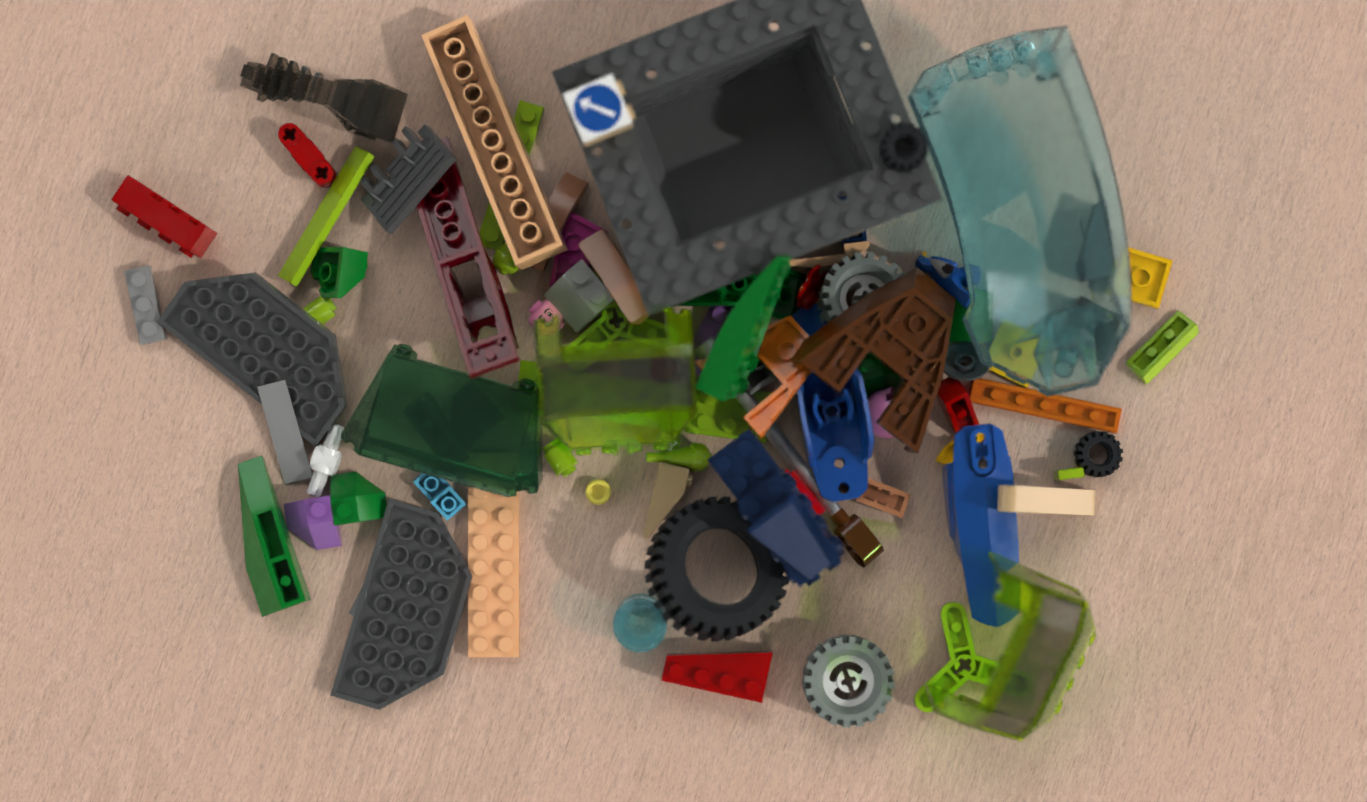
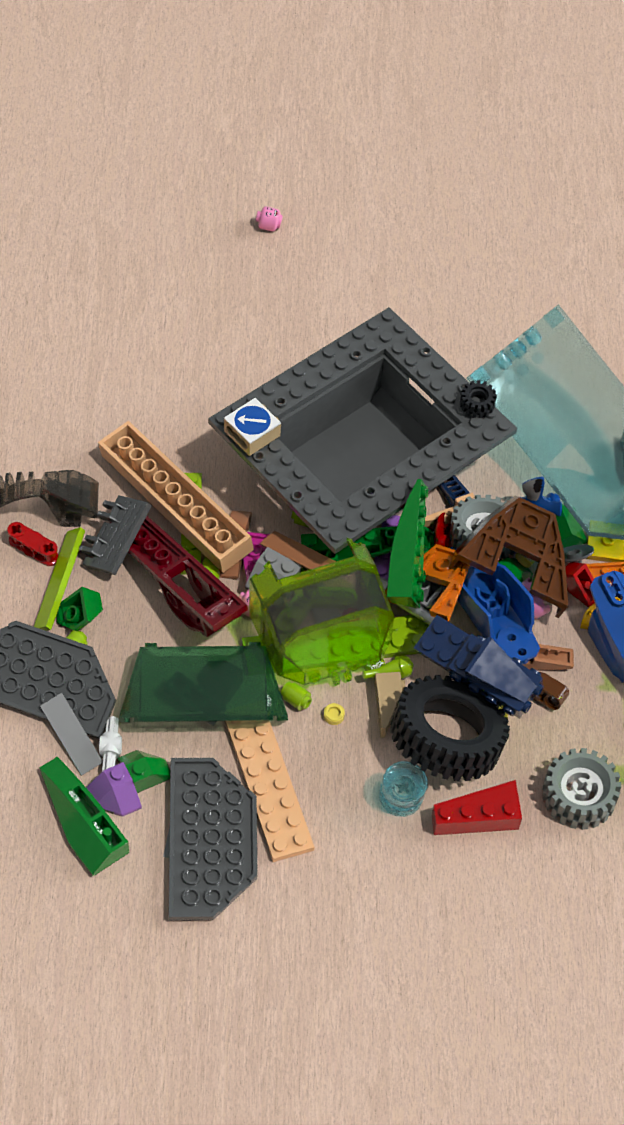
camera: 20 degrees left, 30 degrees down
(440, 494) = (208, 746): medium azure slope -> none

